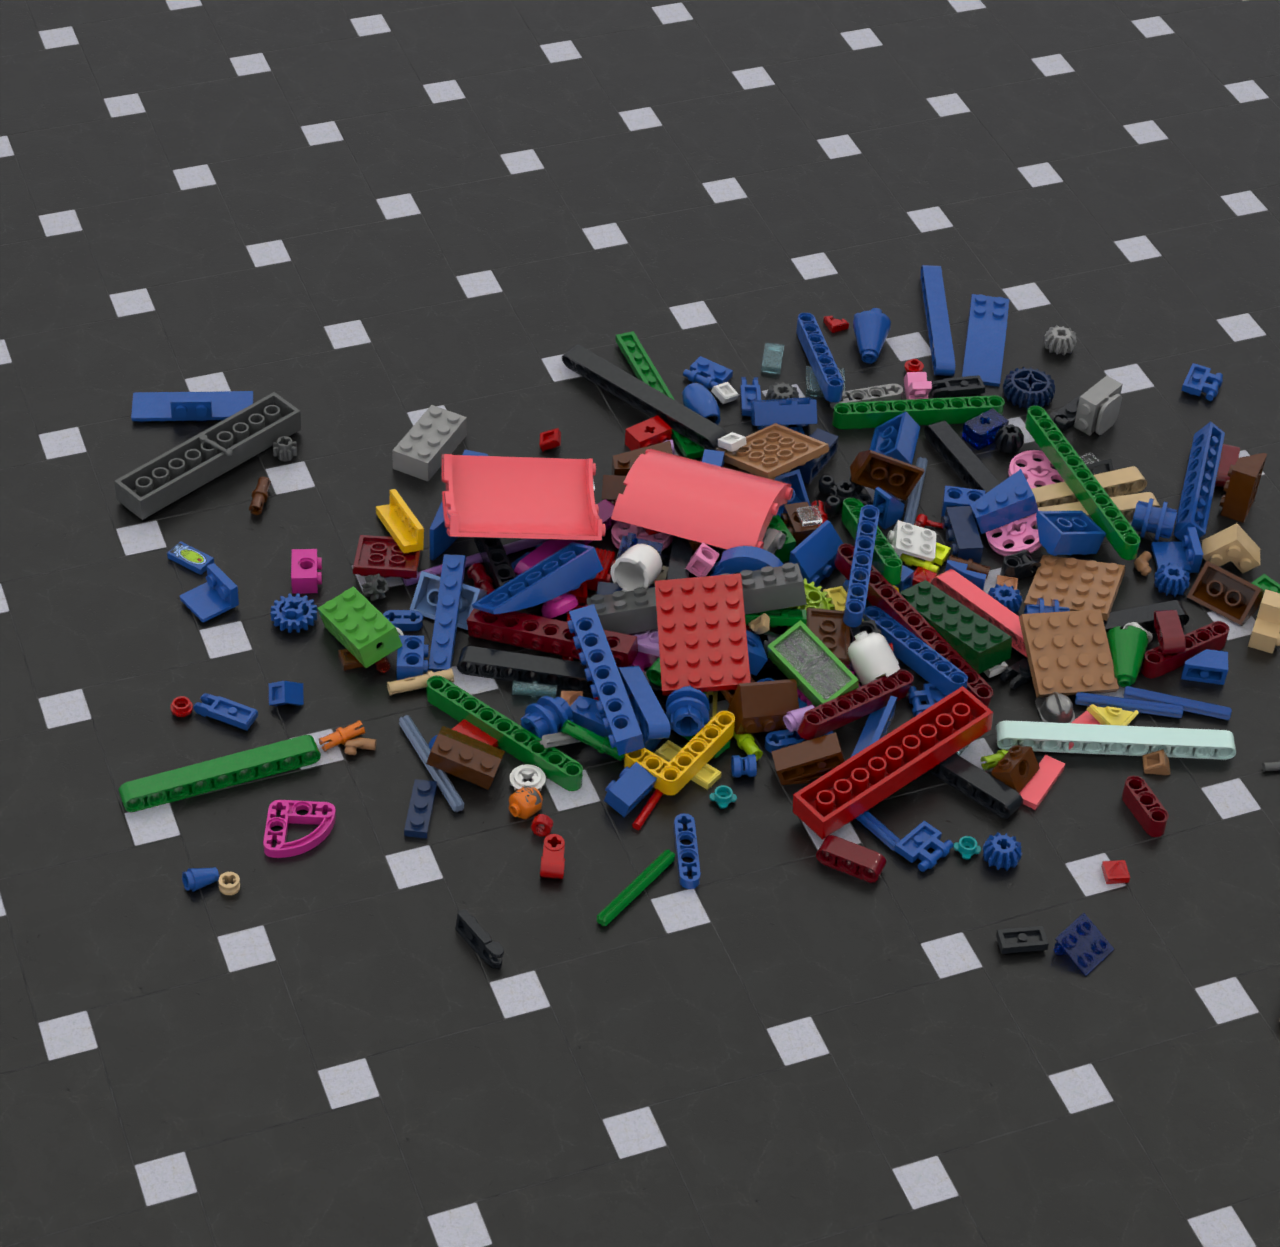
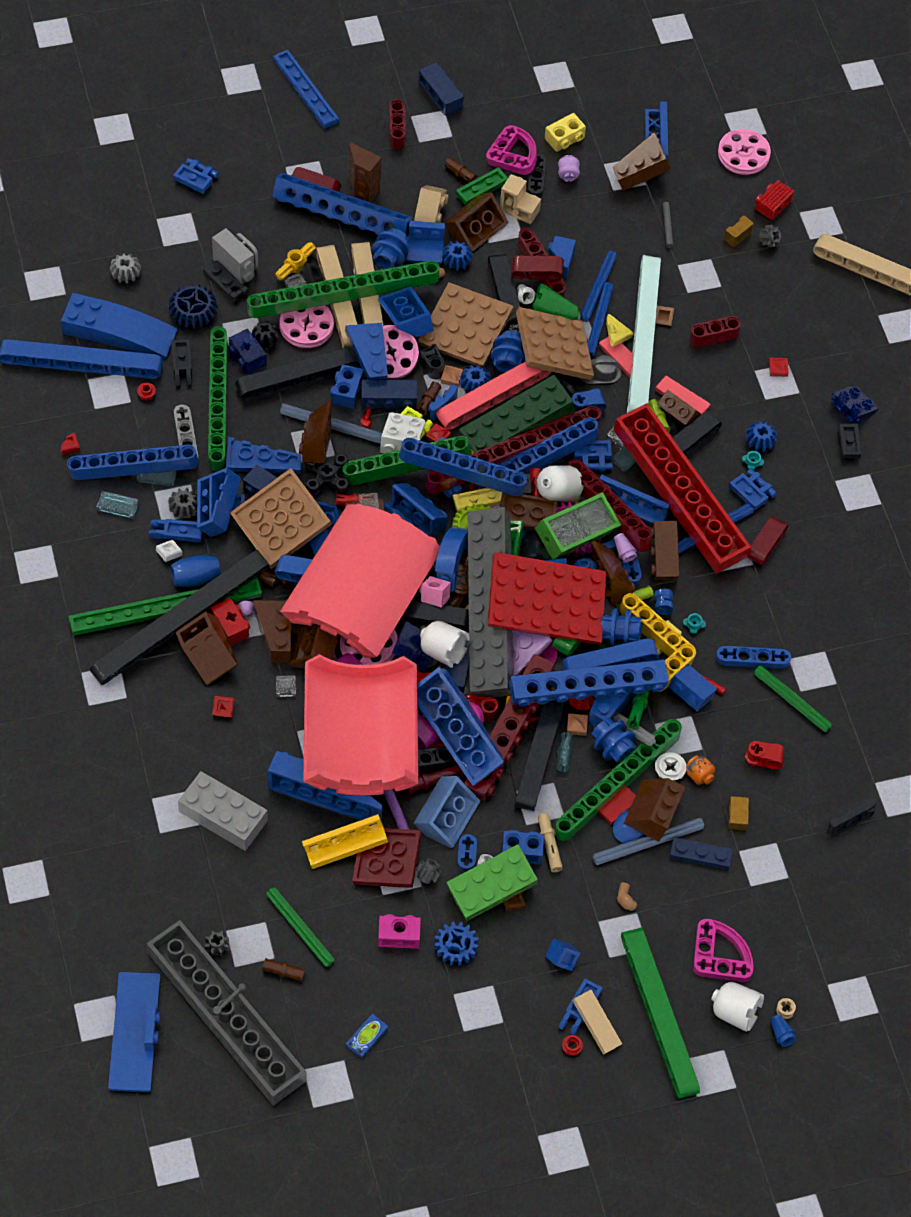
camera: 85 degrees left, 15 degrees up
(205, 720) = (597, 1022): none -> tan tile
(212, 597) = (428, 1016): blue bracket -> none
(223, 831) = (737, 1005): none -> white cylinder
(308, 506) = (300, 927): none -> green axle
(341, 735) = (615, 910): orange pin -> none
(447, 612) = (478, 807): blue plate -> none
(474, 836) = (738, 813): none -> pearl gold piece
(542, 830) = (726, 760): red axle -> none
(613, 415) = (207, 647): none -> reddish brown slope
(707, 373) = (132, 558): blue plate -> none
(732, 442) = (268, 547): white plate -> none
(760, 624) = (529, 553): tan tile -> none
(852, 439) = (245, 456): none -> blue wing
(870, 333) = (106, 415): blue cone -> none
(889, 508) = (354, 444): blue slope -> none
(897, 438) = (261, 425): blue slope -> none
(916, 385) = (185, 393): bright pink brick -> none
(1004, 696) = (589, 398): none -> blue piece
(1116, 453) = (295, 261): none -> yellow axle

